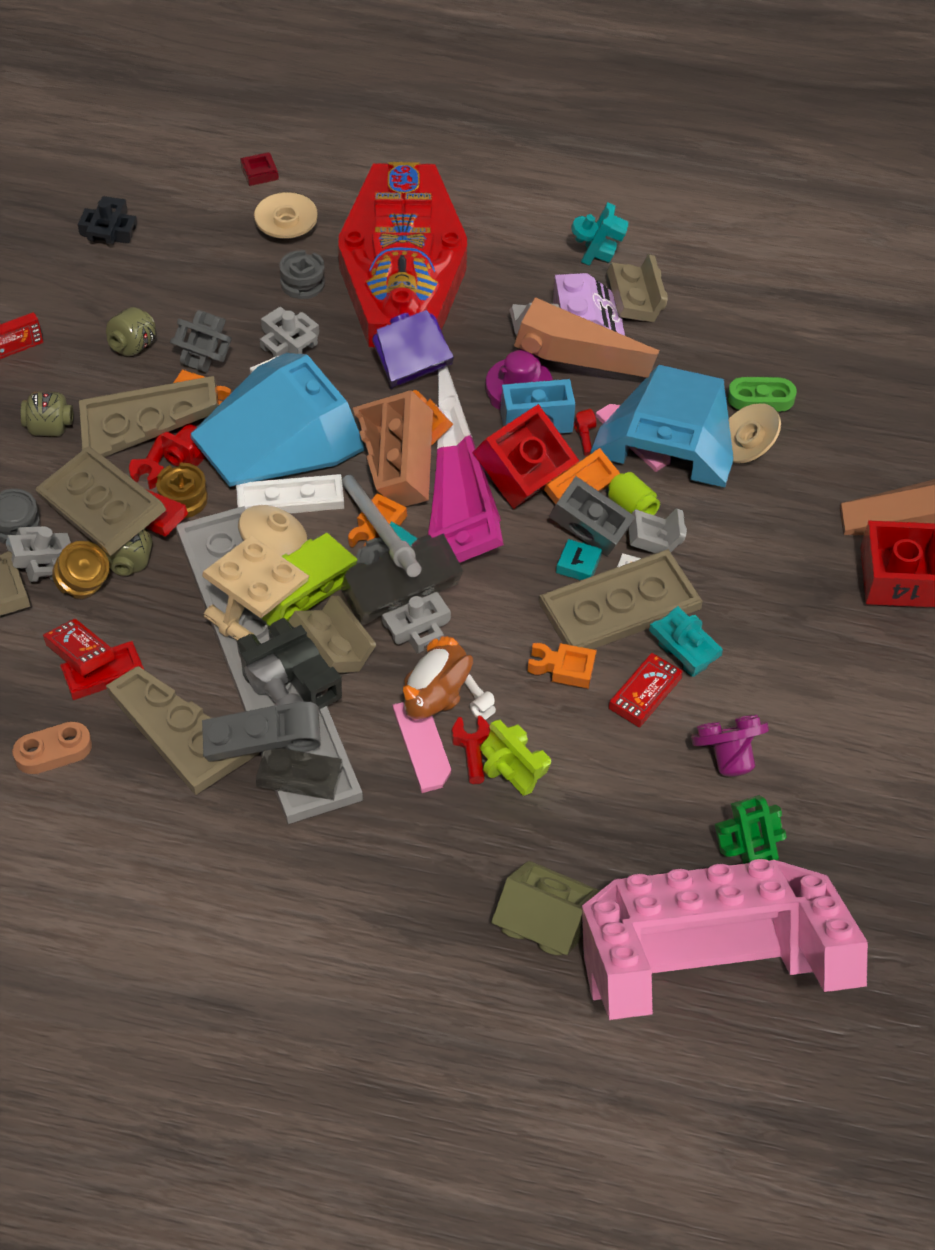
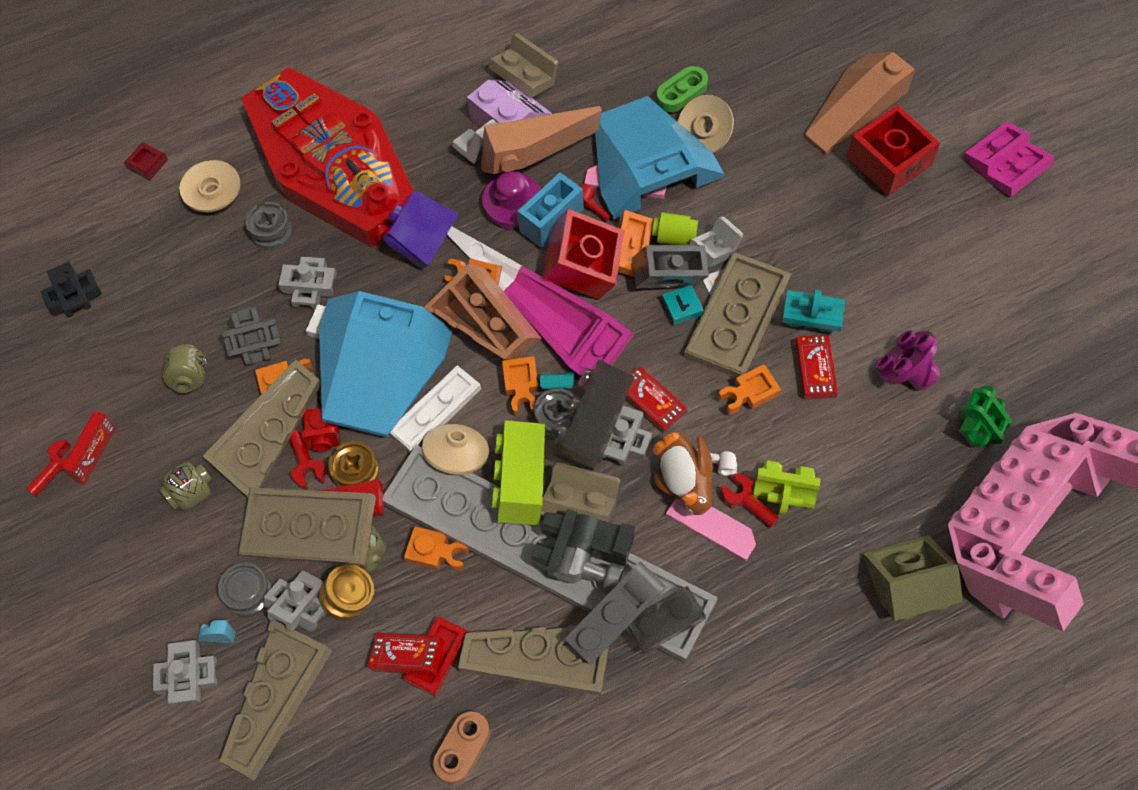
camera: 35 degrees left, 10 degrees up
(179, 591) = (430, 547): none -> orange plate
(252, 579) = (505, 502): tan plate -> none
(400, 550) = (590, 398): light grey bar -> none
(474, 613) = (654, 400): none -> red tile
(595, 232) = (461, 42): teal hips -> none

